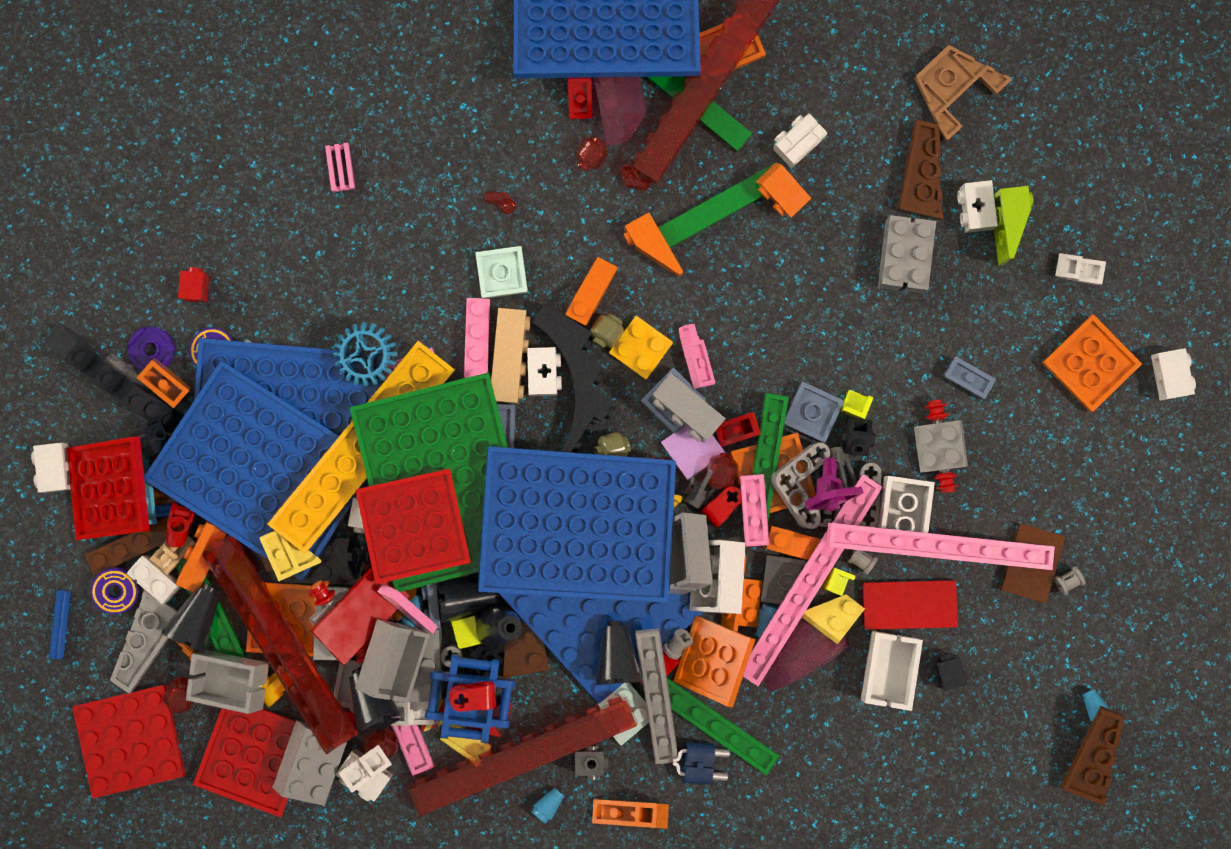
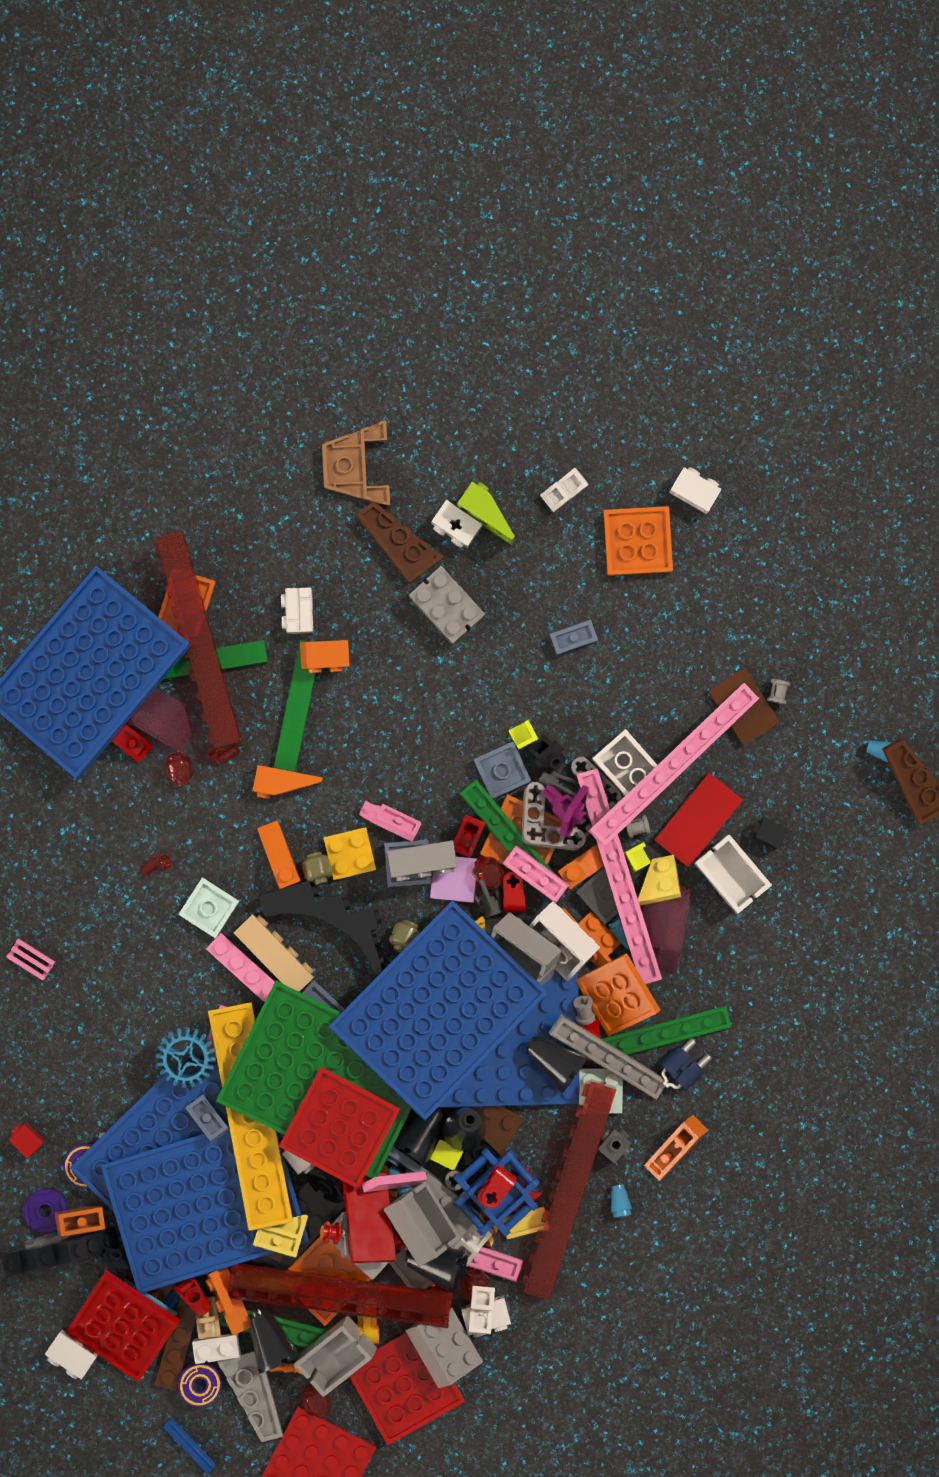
camera: 50 degrees left, 0 degrees up
(330, 414) = (207, 1118): none -> sand blue plate
(536, 360) = (294, 937): white brick -> none
(941, 446) = (604, 700): light grey plate -> none

